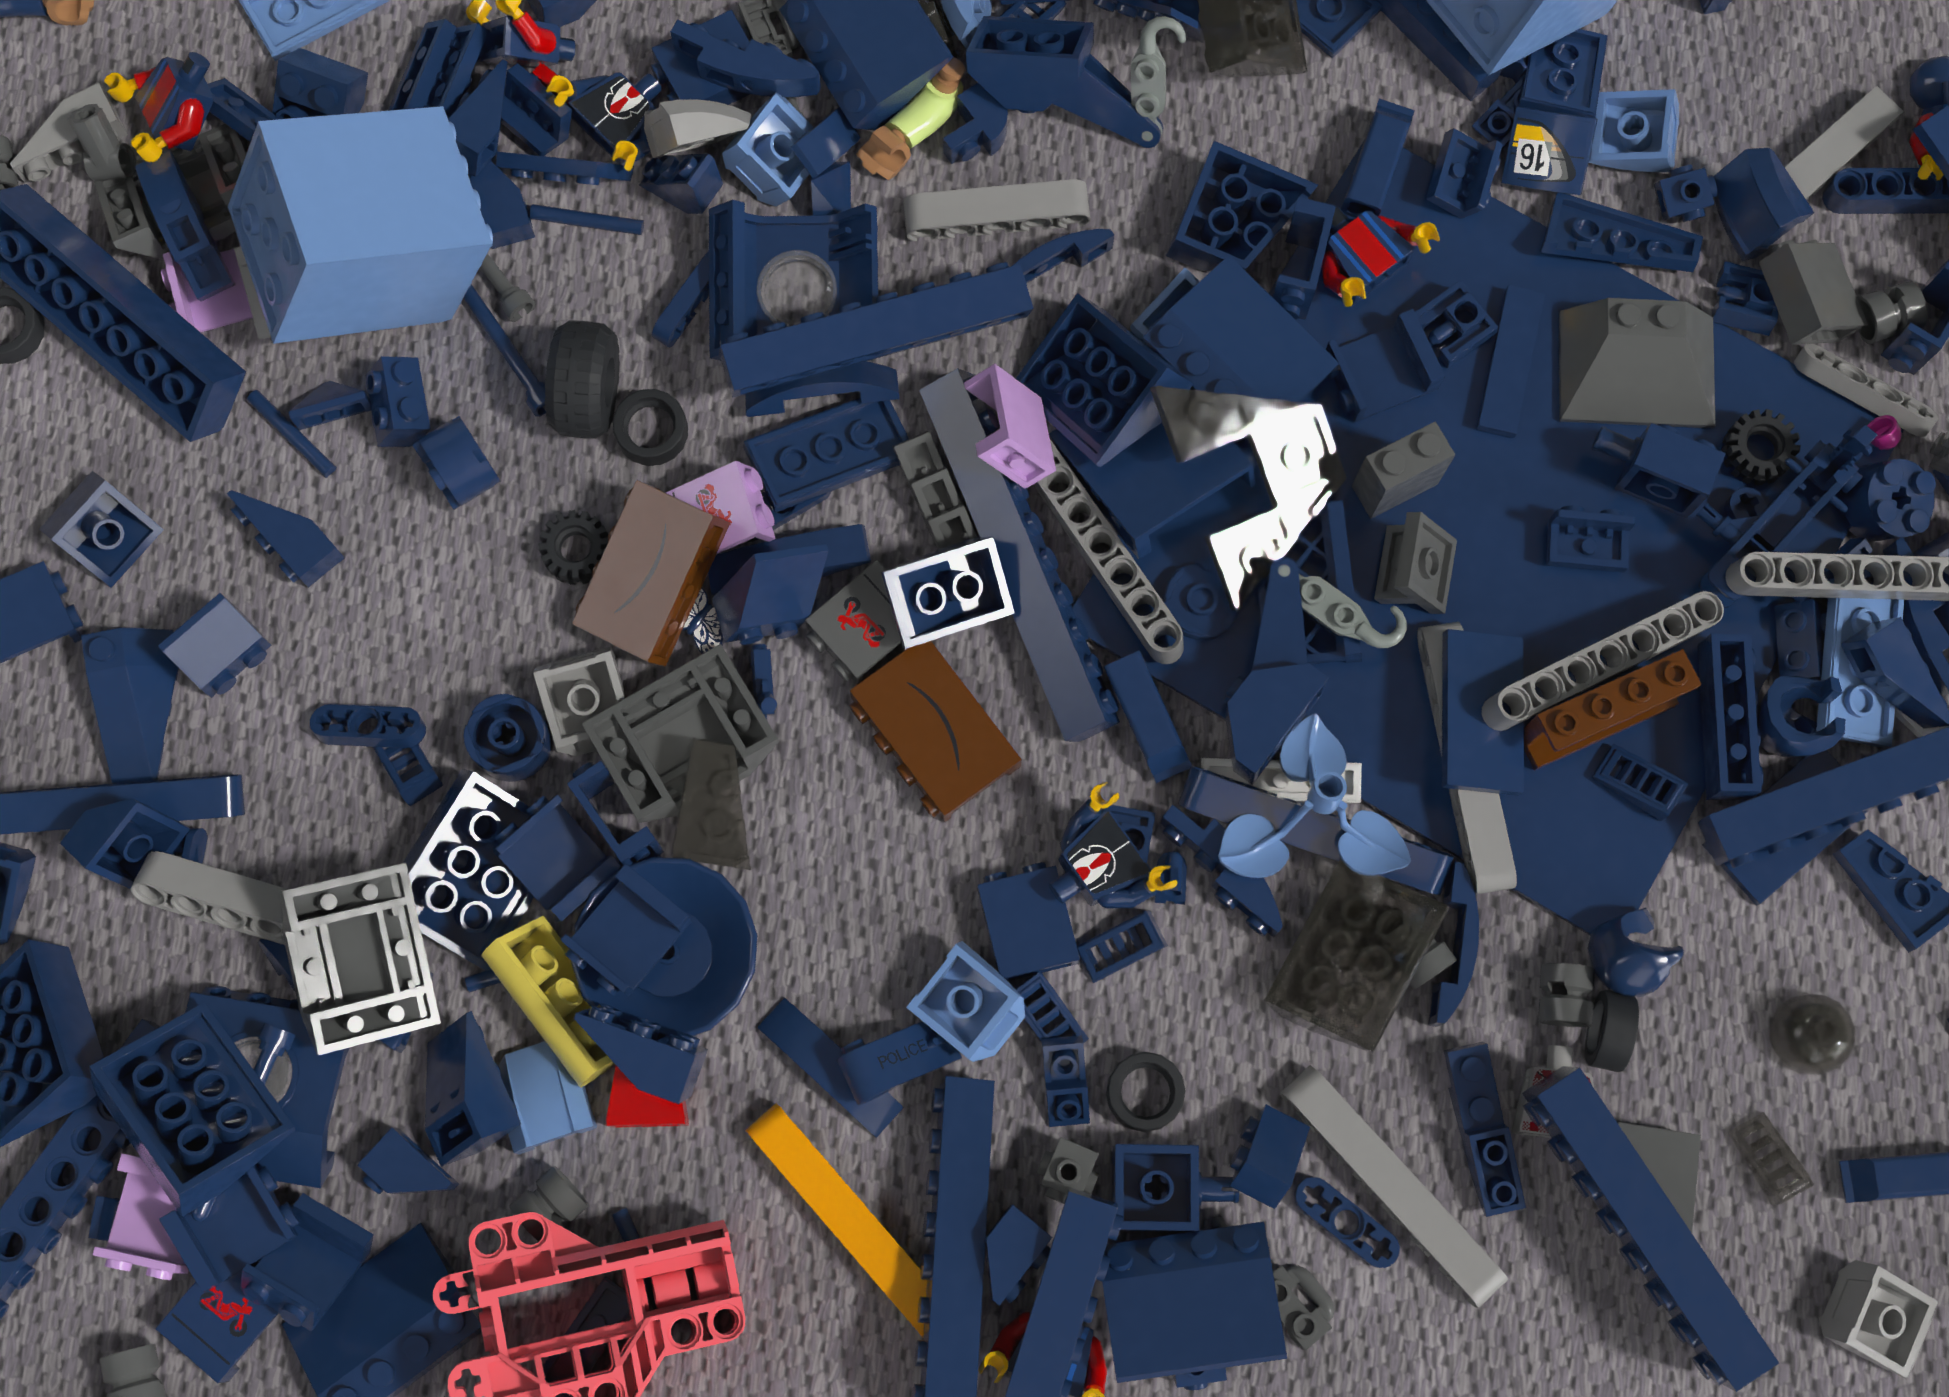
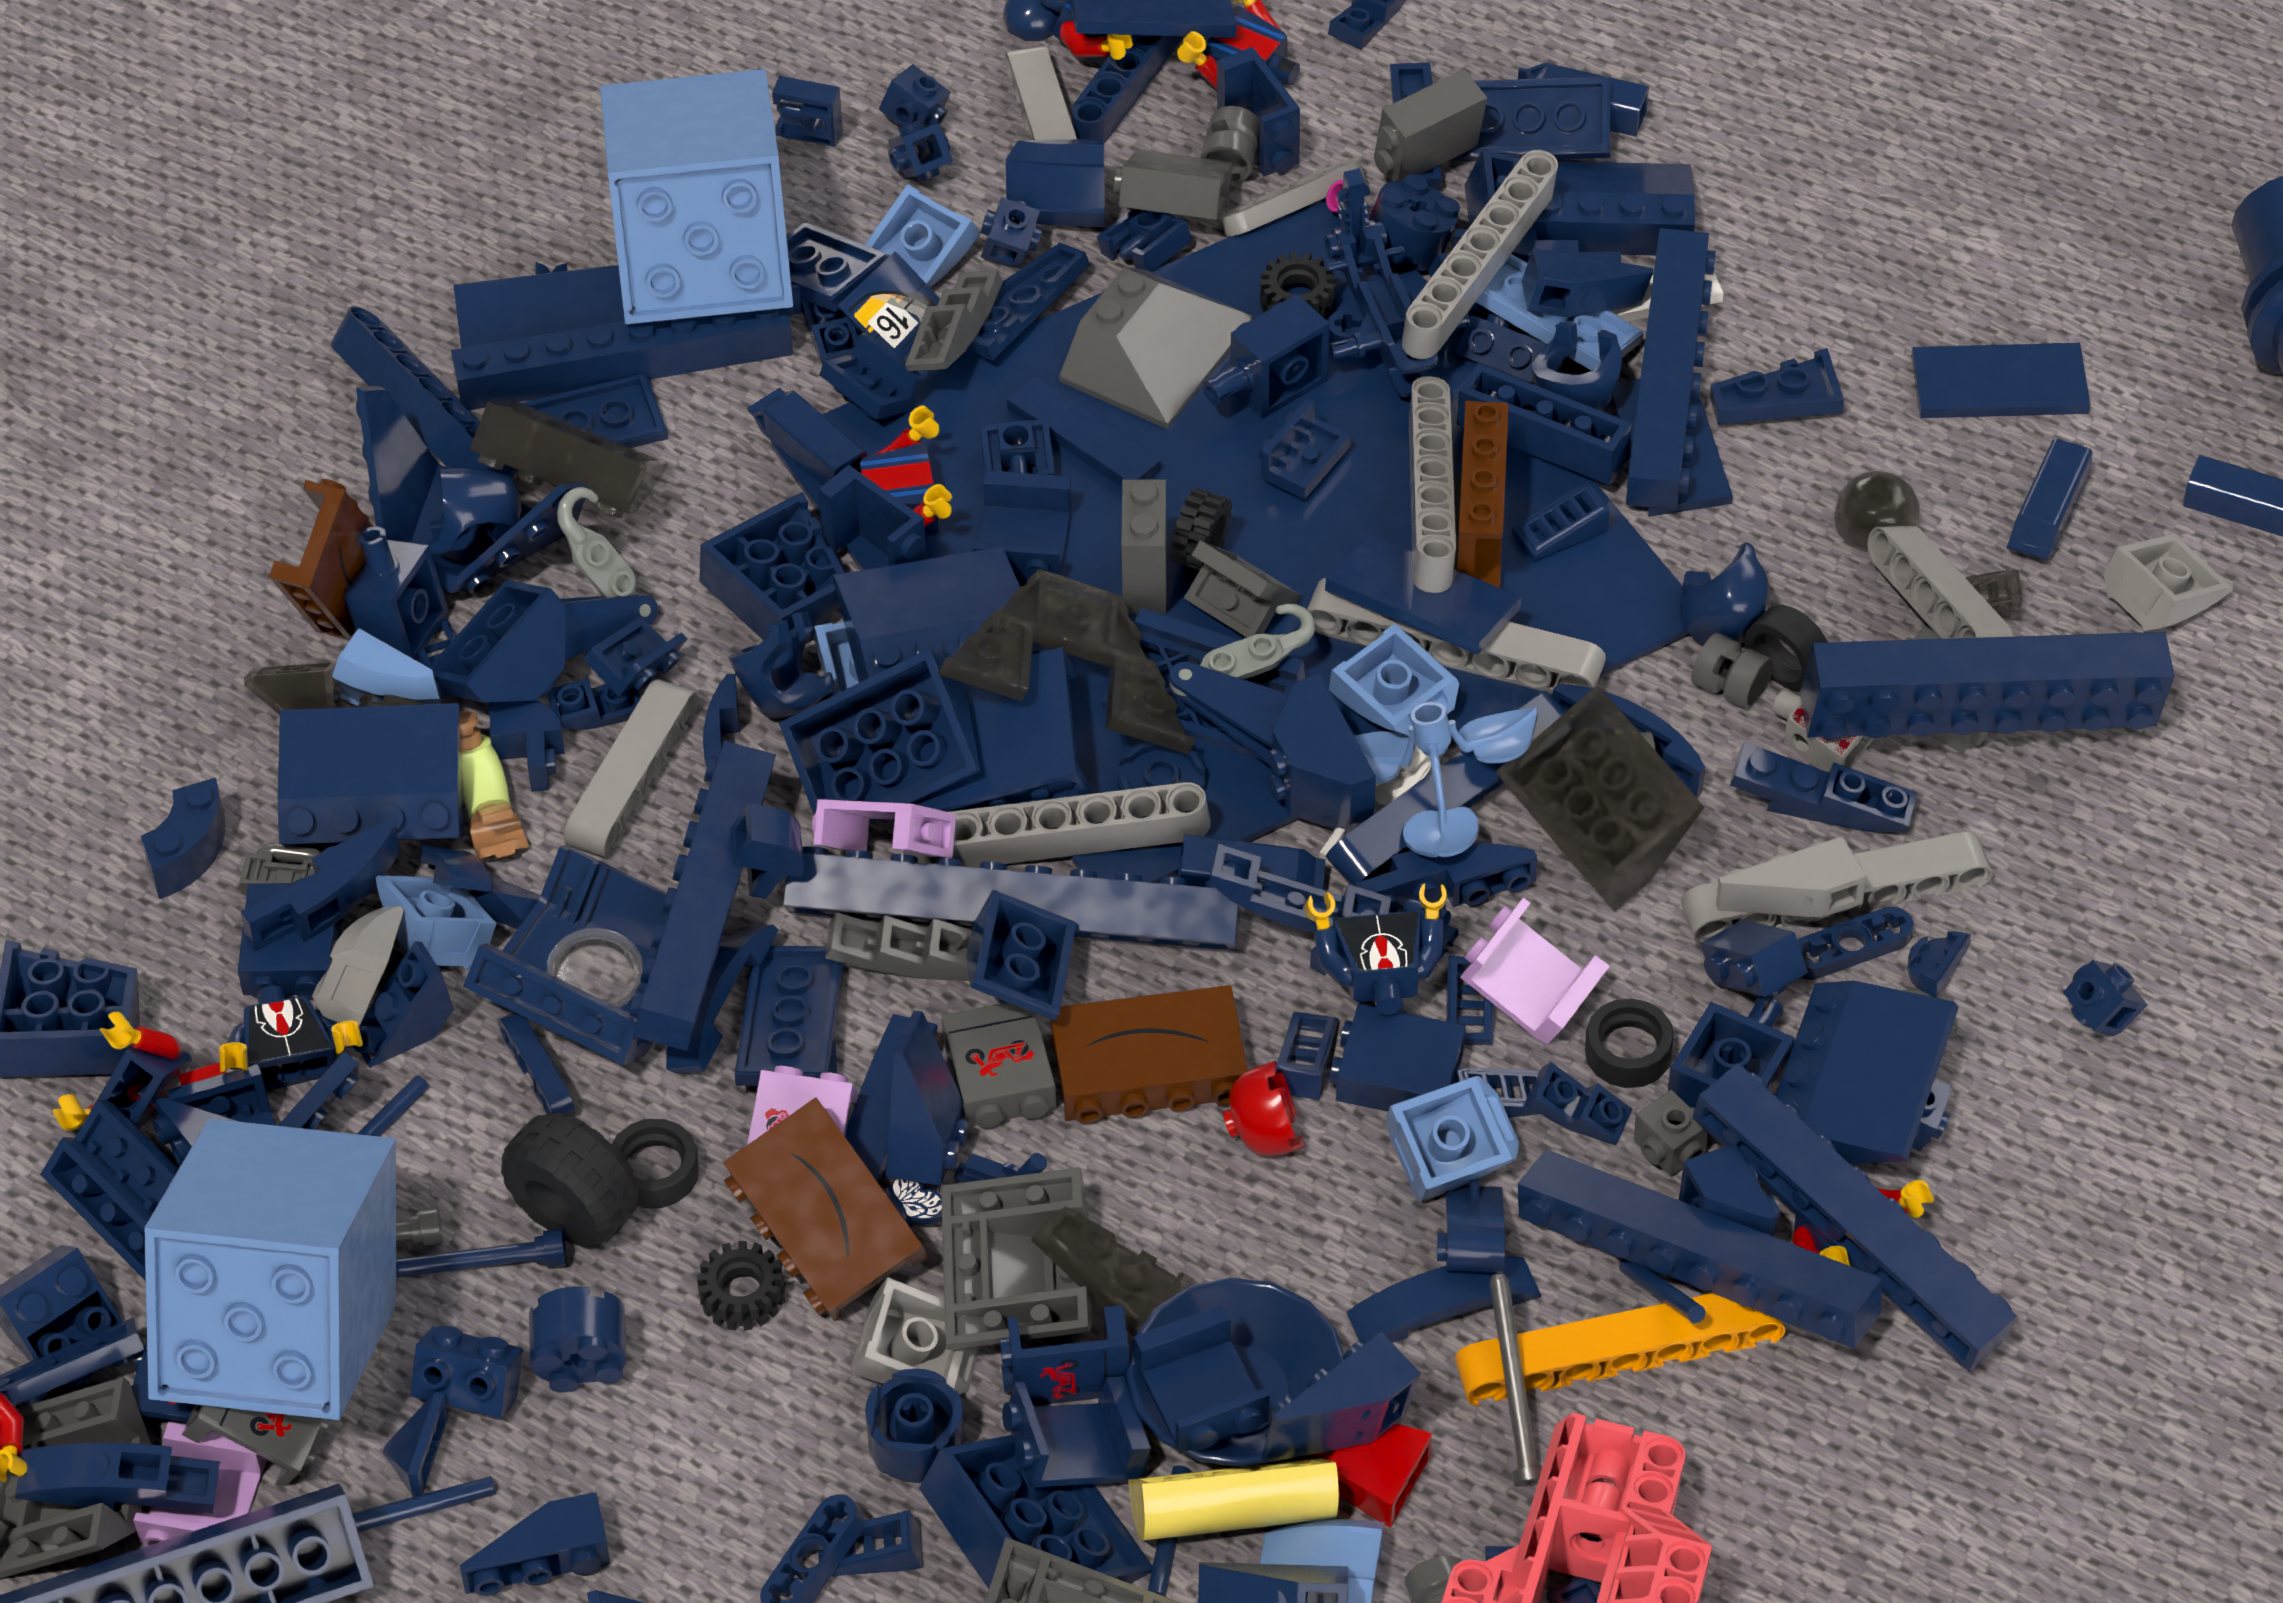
camera: 60 degrees left, 25 degrees down
(703, 1209) = (1528, 1470): none -> flat silver bar
(902, 1245) = (1663, 1290): none -> dark blue bar
(920, 845) = (1263, 1112): none -> red cylinder
(937, 351) = (768, 846): none -> dark blue brick
(973, 854) = (1303, 1079): none -> dark blue slope
(1041, 149) = (590, 708): none -> dark blue slope
(1093, 151) = (634, 656): none -> dark blue bracket
(1124, 767) = (1283, 899): none -> dark blue slope
(1134, 262) = (774, 670): none -> dark blue piece
(1163, 985) = (1529, 975): none -> lavender panel
(1363, 1169) = (1801, 883): none -> light grey slope
(1364, 1300) = (1935, 960): none -> dark blue tile
(1384, 738) = (1391, 680): none -> medium blue slope
(1454, 502) = (1203, 519): none -> black tyre
(1554, 204) = (955, 322): none -> dark grey slope
(1723, 91) = (932, 150): none -> dark blue brick
(1741, 1133) = (1933, 584): none -> light grey beam
(1778, 47) = (915, 97): none -> dark blue brick

